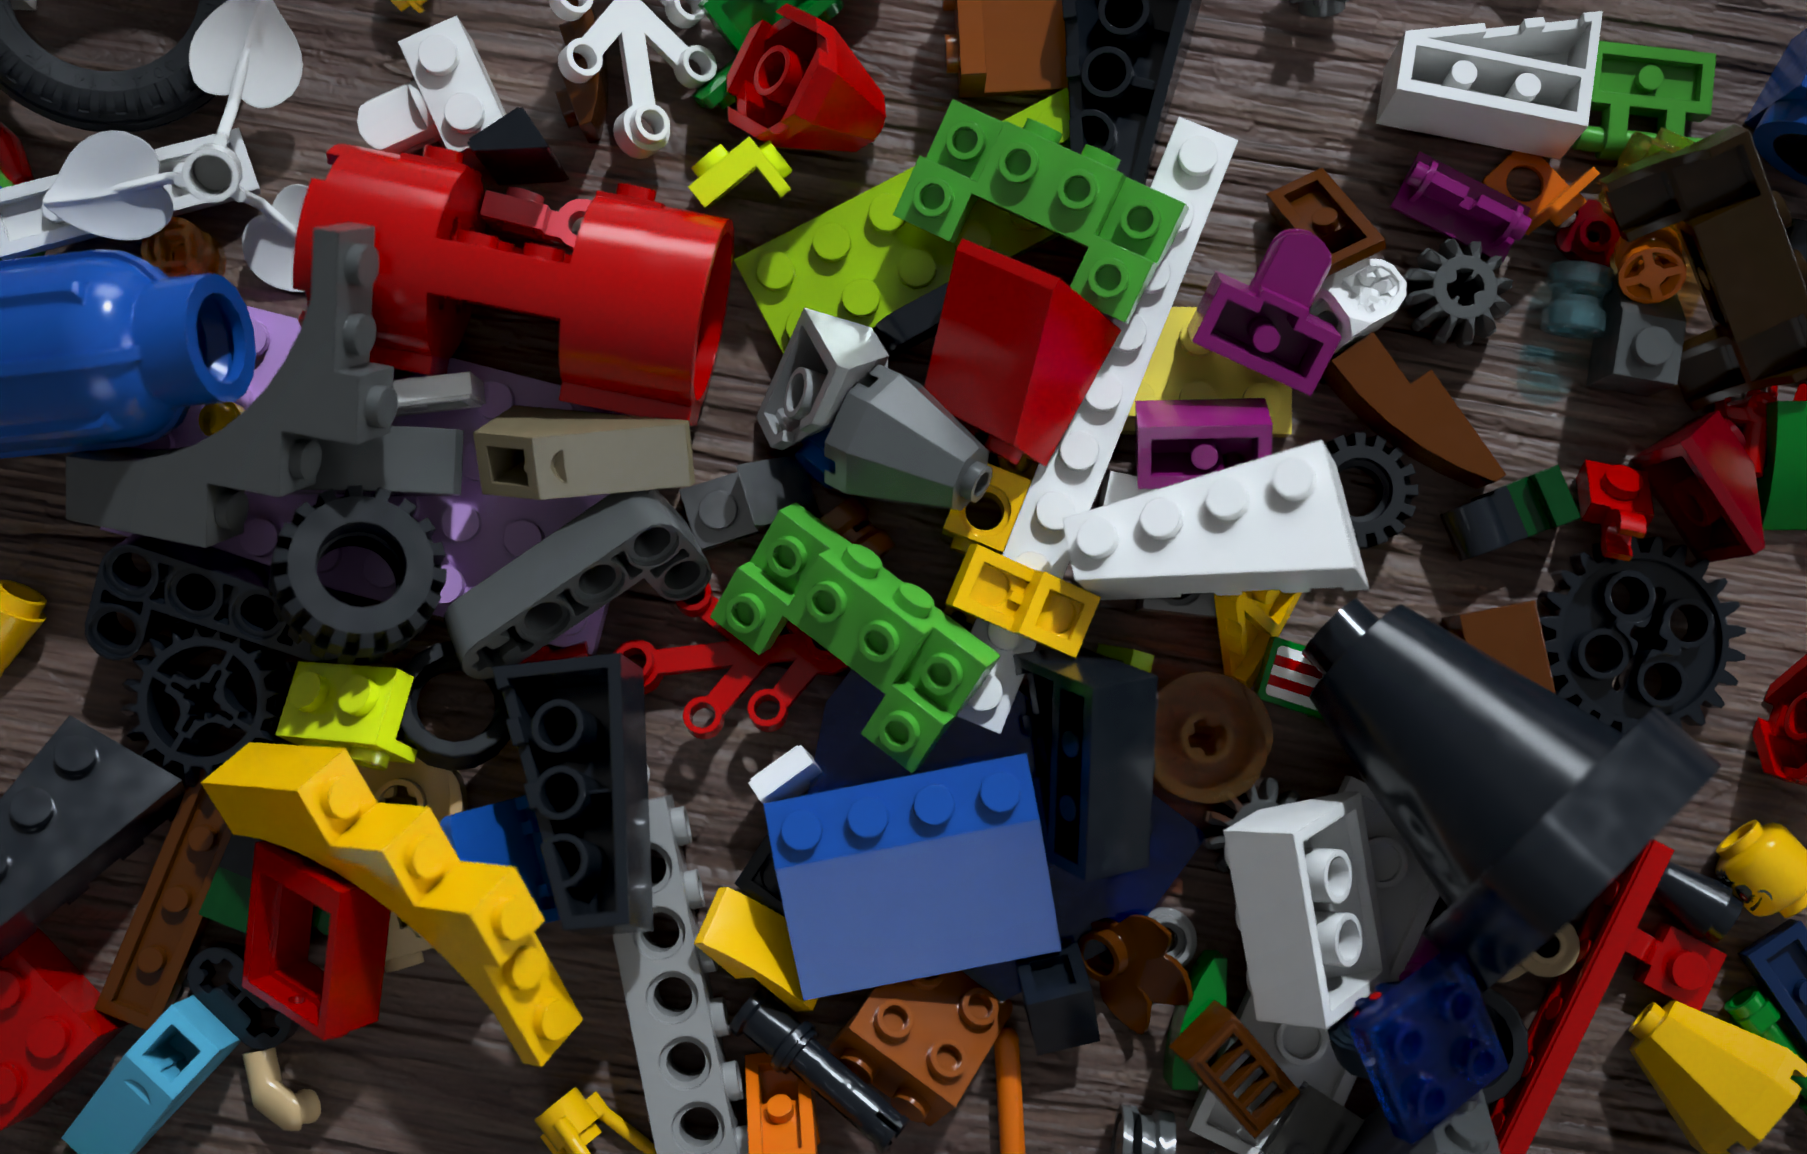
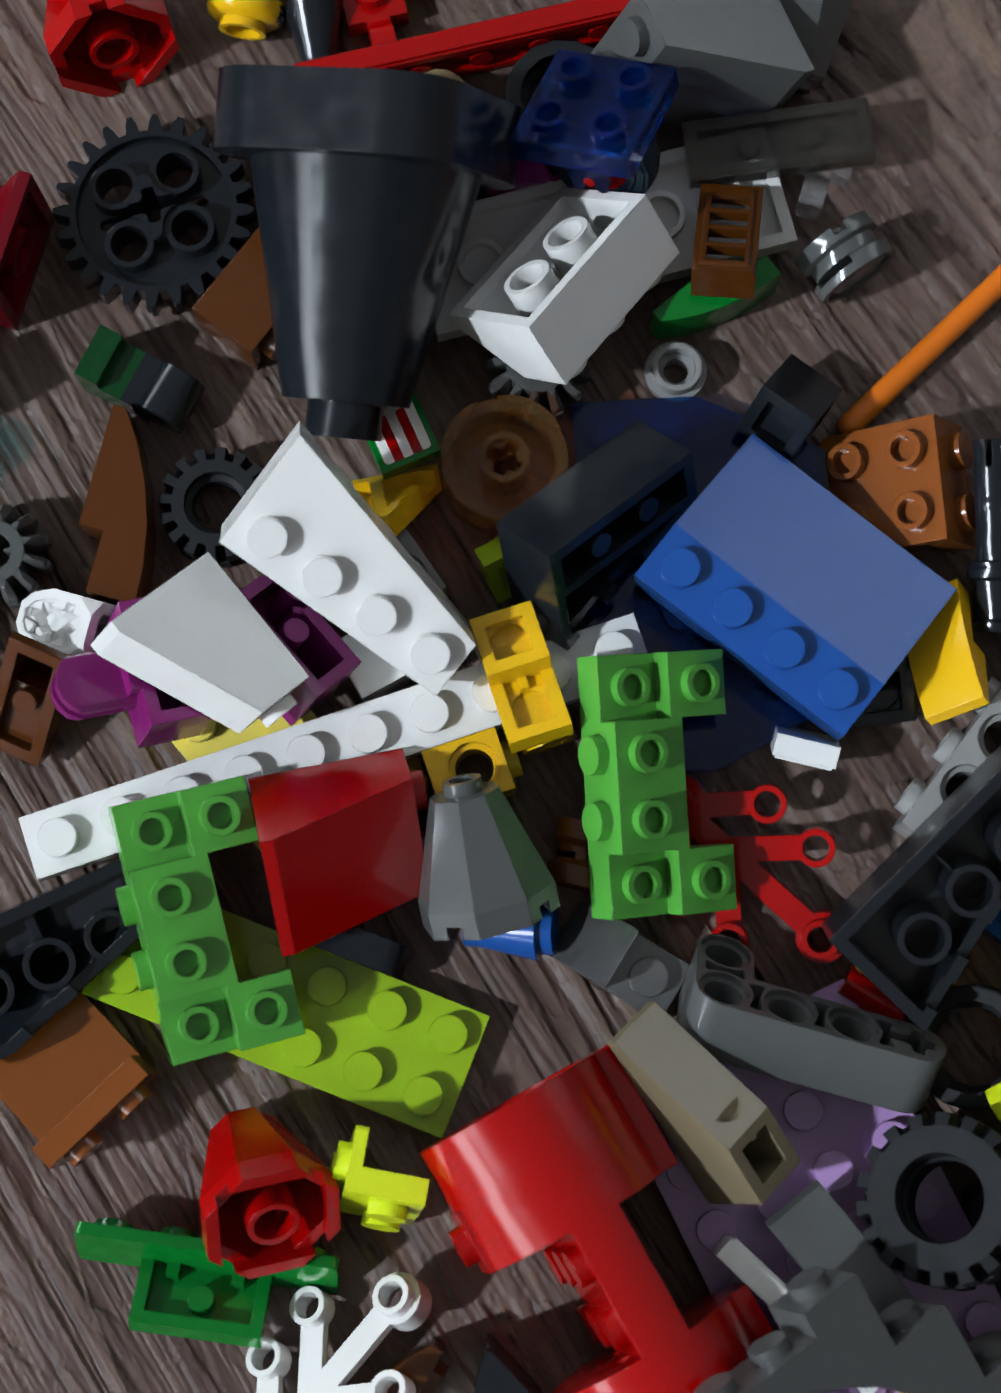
camera: 125 degrees left, 5 degrees down
(526, 215) = (548, 1338): coral plate -> none
(815, 374) = (481, 983): light grey slope -> none
(1136, 968) = (716, 372): reddish brown plate -> none
(1248, 370) = (205, 648): none -> white slope
(1618, 501) = (61, 309): red plate -> none

